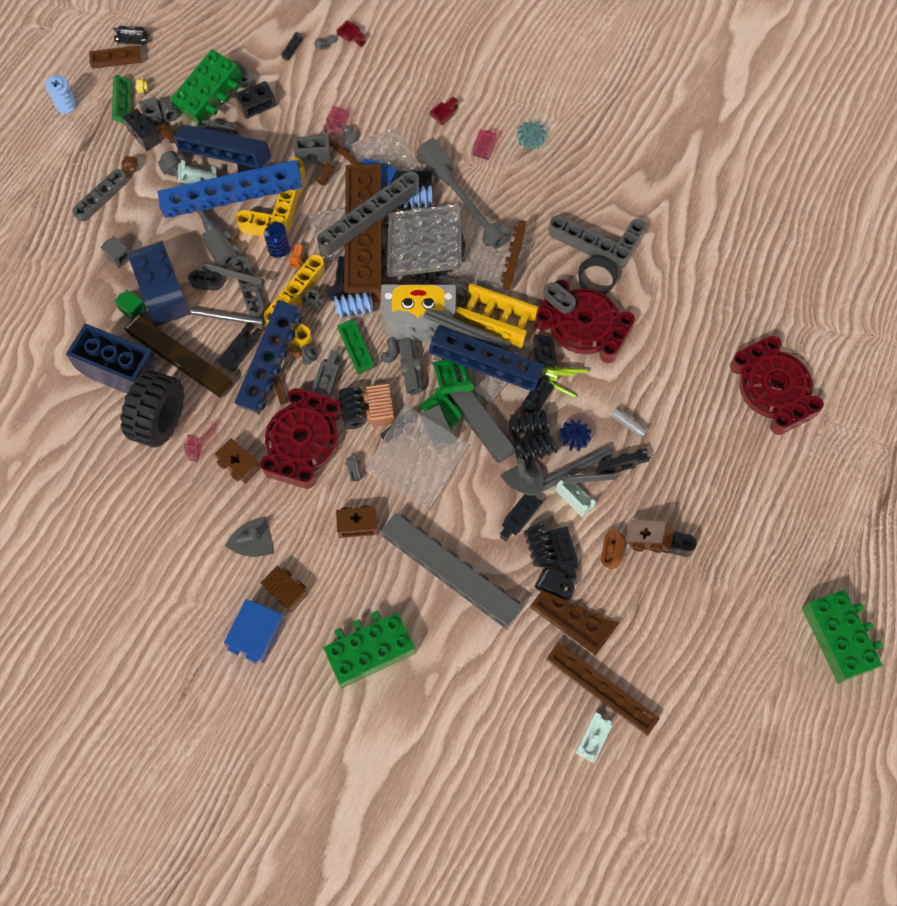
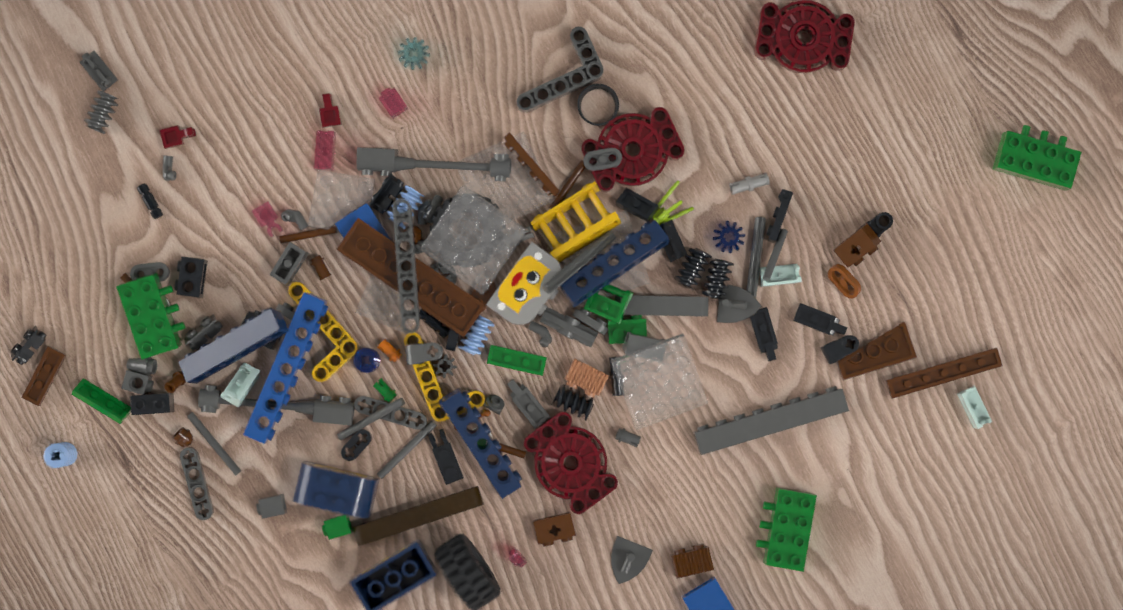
camera: 55 degrees left, 20 degrees up
(138, 191) = (214, 444): none -> dark grey bar
(141, 85) = (97, 372): light yellow plate -> none
(264, 271) = (385, 390): none -> green pin
(311, 271) = (420, 353): none -> dark grey piece
(346, 521) = (677, 477): reddish brown brick -> none
(416, 125) = (325, 150): none -> clear pink hinge
(428, 385) = (598, 325): none -> dark grey plate
(527, 297) = (568, 185): none -> reddish brown bar
(539, 547) = (802, 336): black piece -> none

